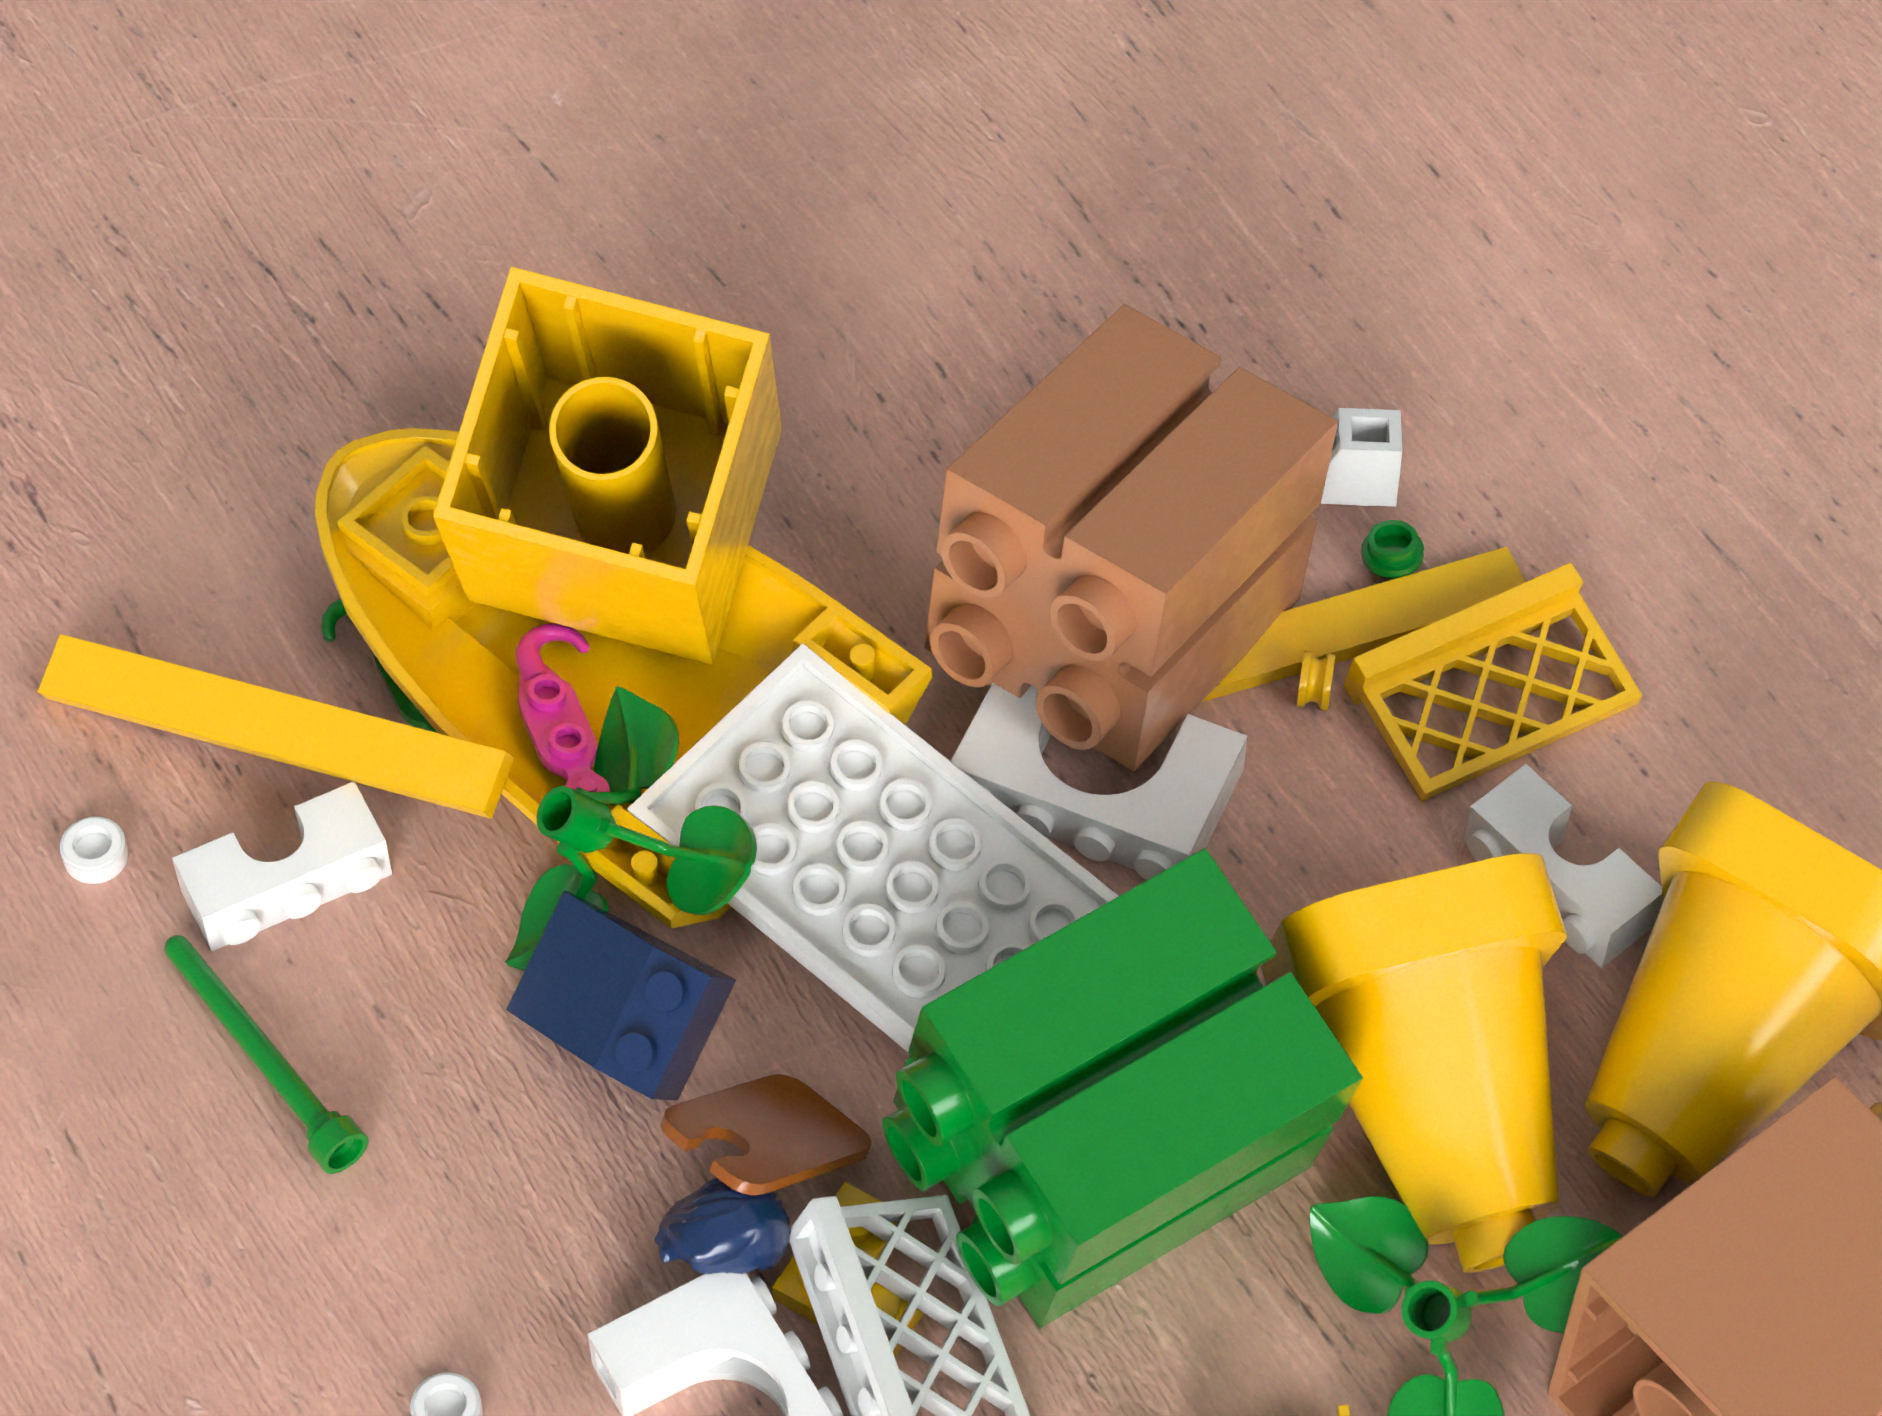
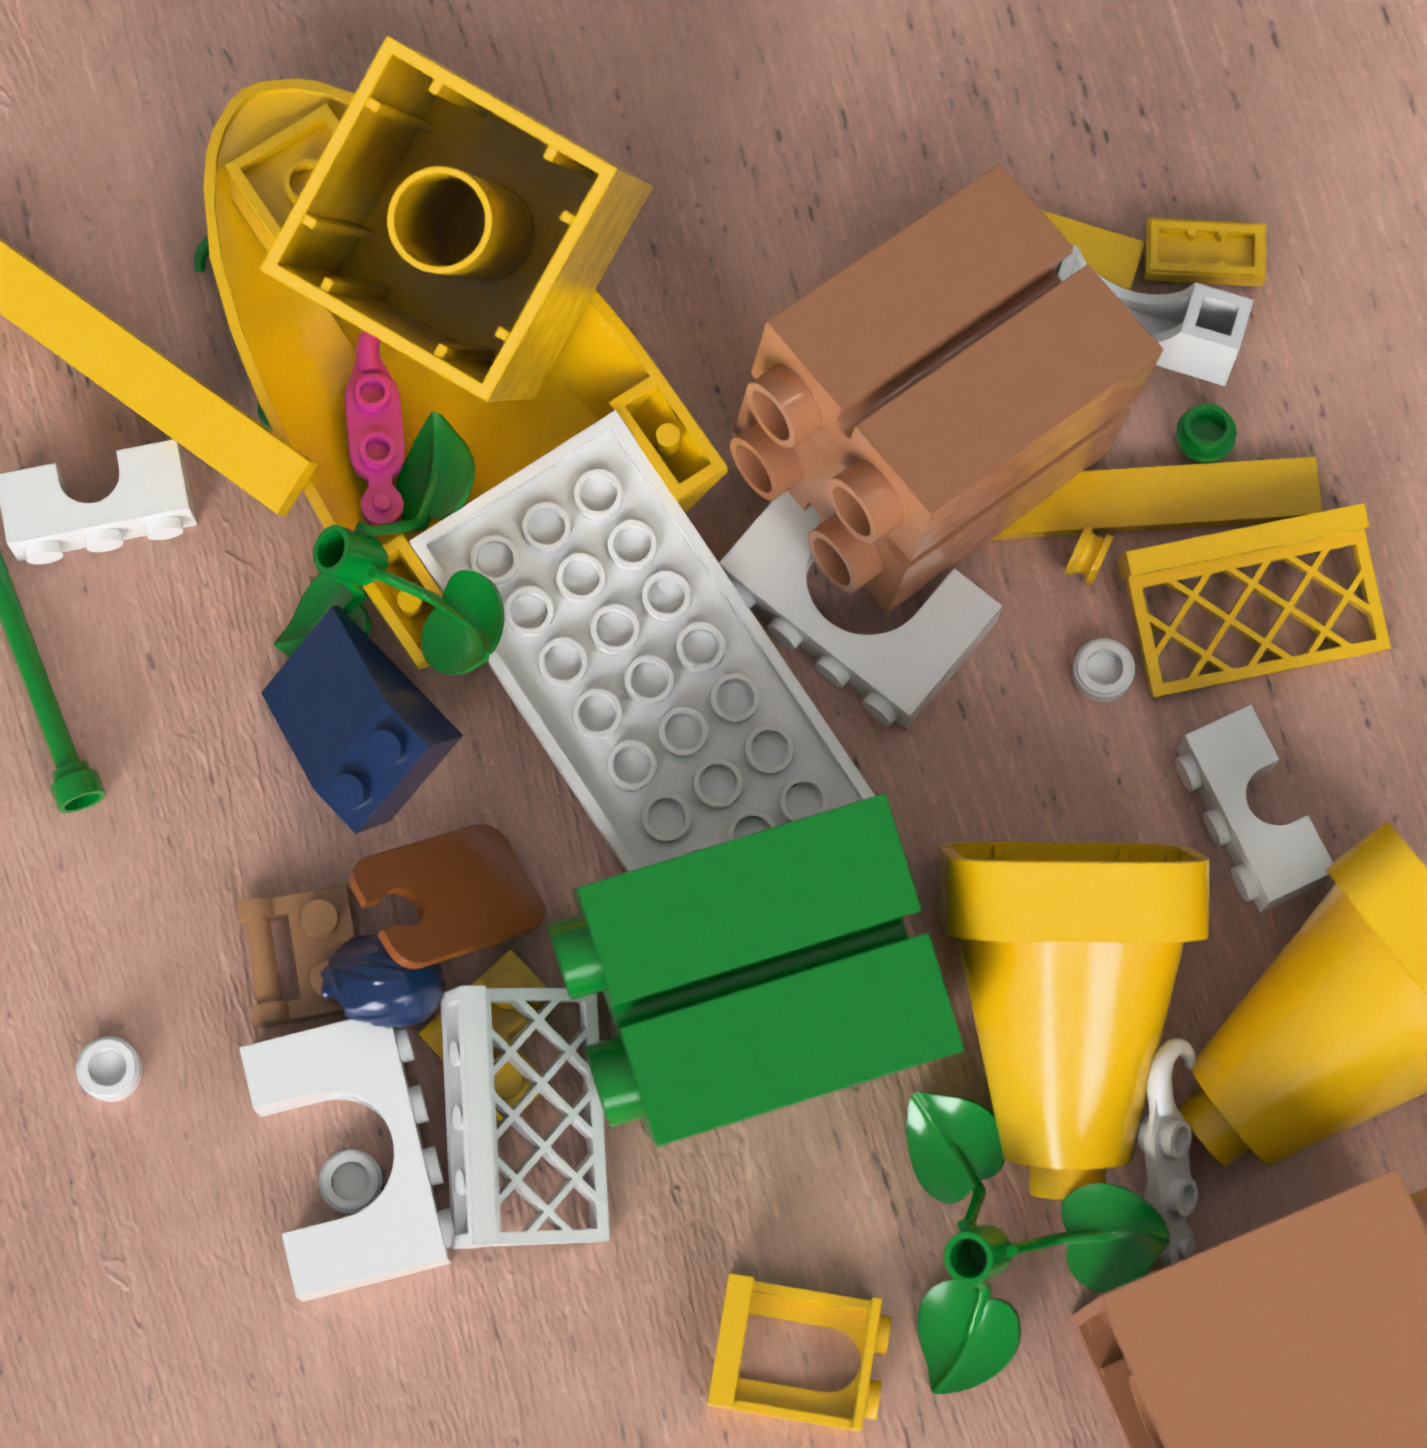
camera: 15 degrees right, 20 degrees up
(631, 1217) = (318, 927): none -> medium nougat plate
(1350, 385) = (1205, 252): none -> yellow plate
(1365, 784) = (1103, 670): none -> white tile
(1584, 1166) = (1166, 1143): none -> white piece

